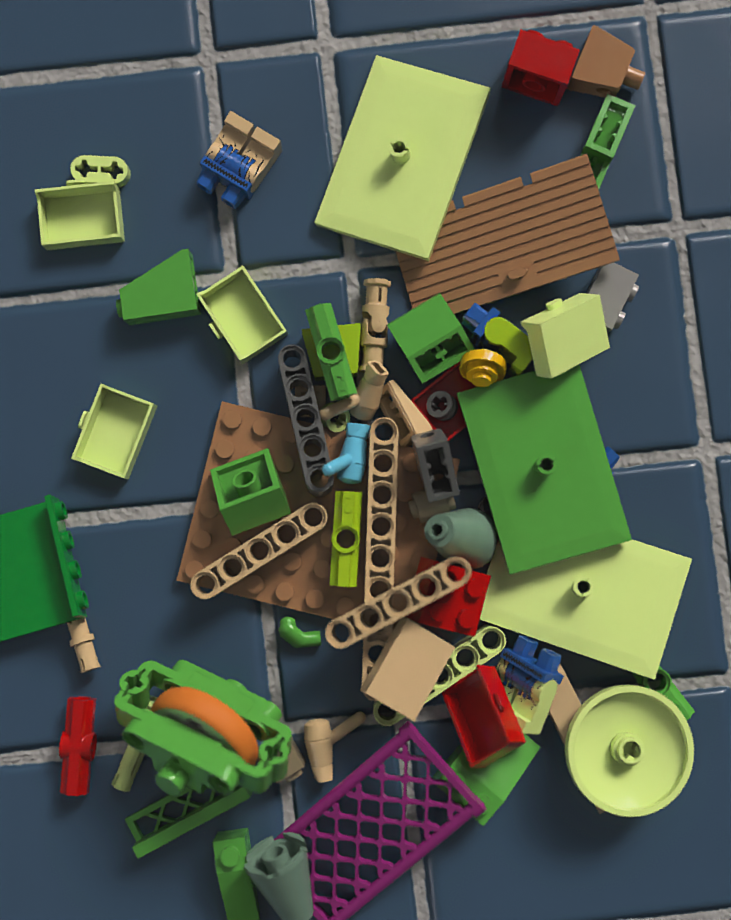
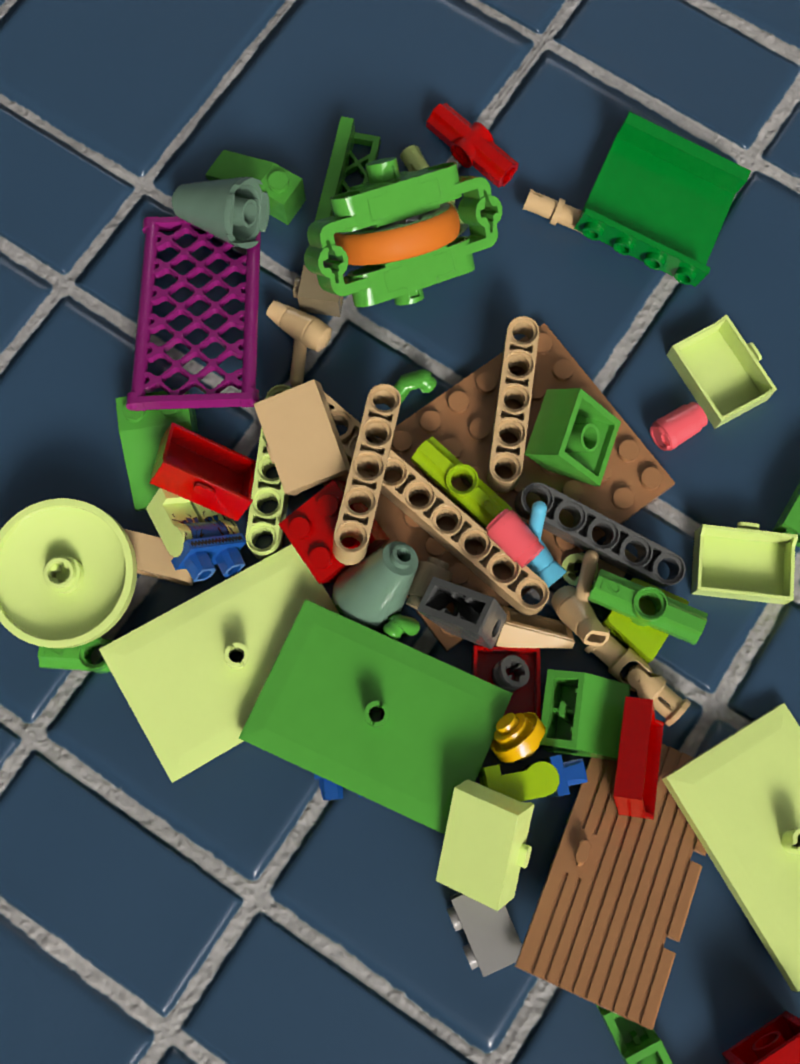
camera: 130 degrees right, 10 degrees down
(179, 430) = (678, 426): none -> coral piece
(359, 470) = (514, 537): none -> coral piece
(432, 283) = (638, 759): none -> red container
(472, 500) = (401, 625): none -> bright green arm

